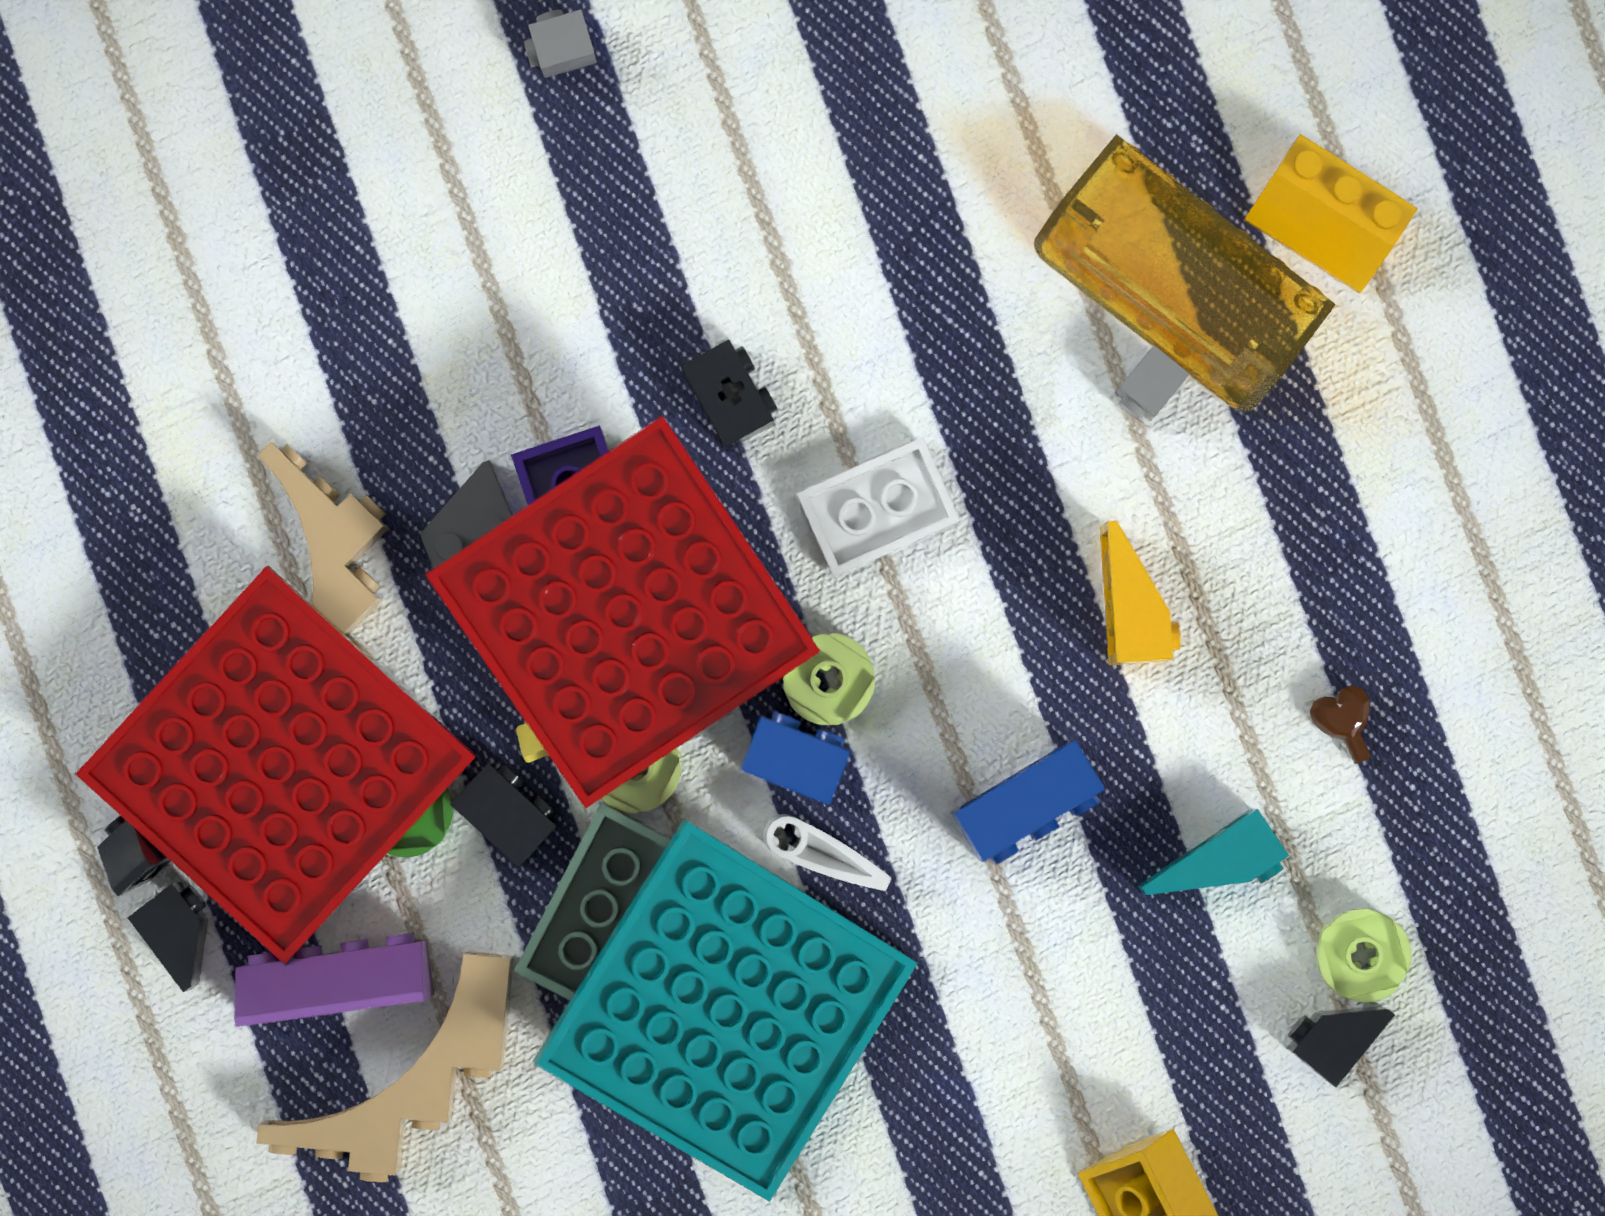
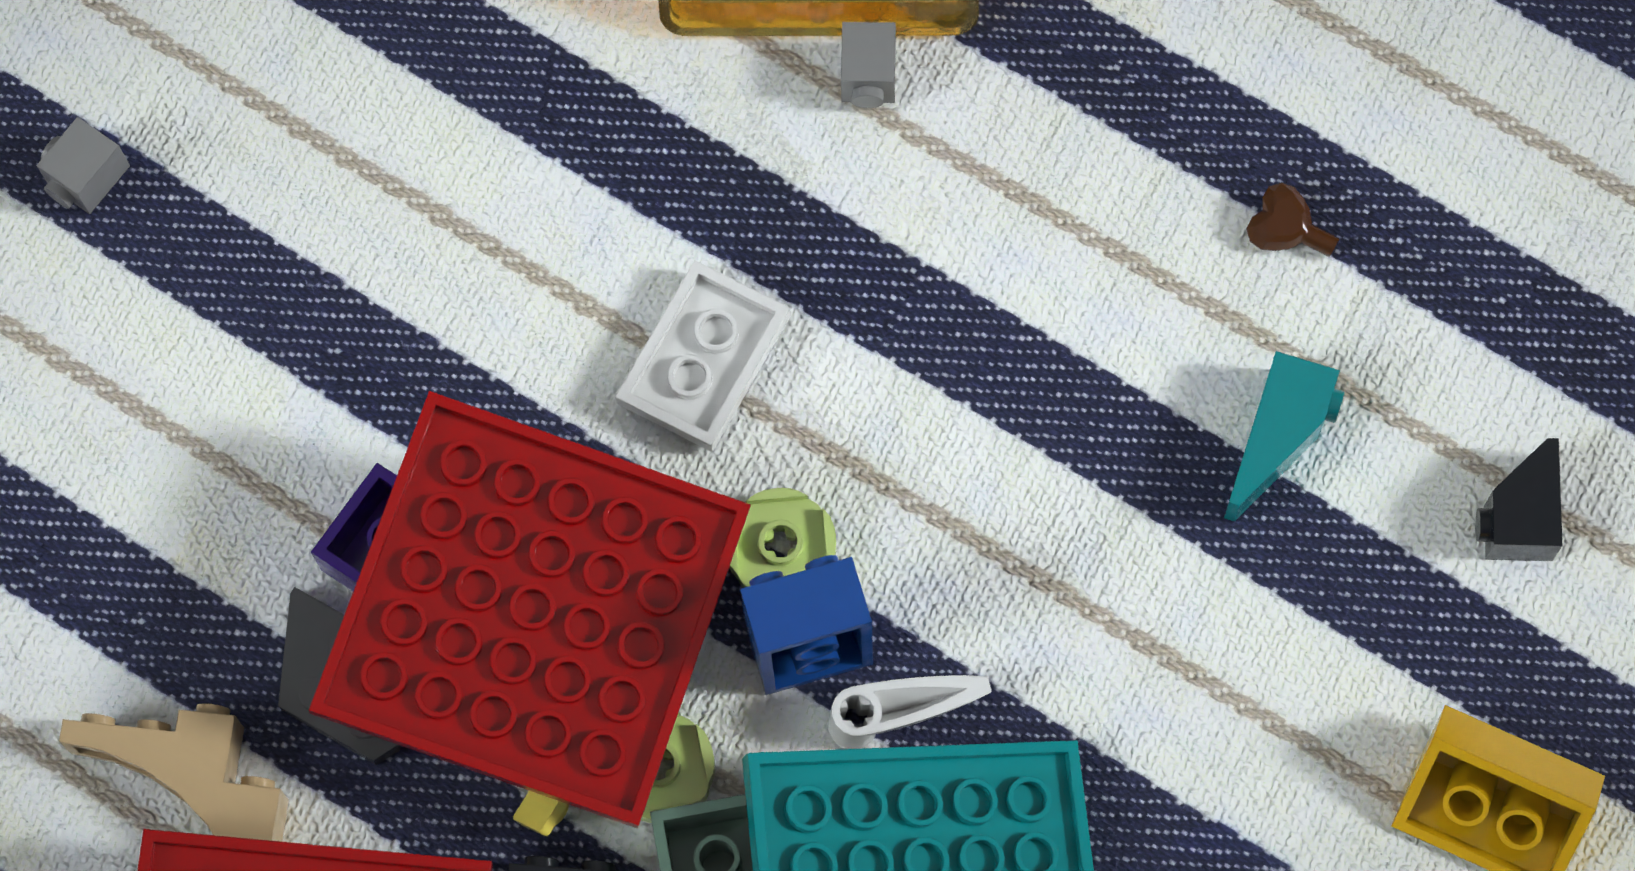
camera: 35 degrees left, 15 degrees down
(706, 378) = (498, 379): black brick -> none
(1029, 803) = (1060, 506): blue brick -> none
(1135, 612) = (1009, 255): yellow slope -> none
(1386, 969) = (1486, 447): yellowish green plate -> none

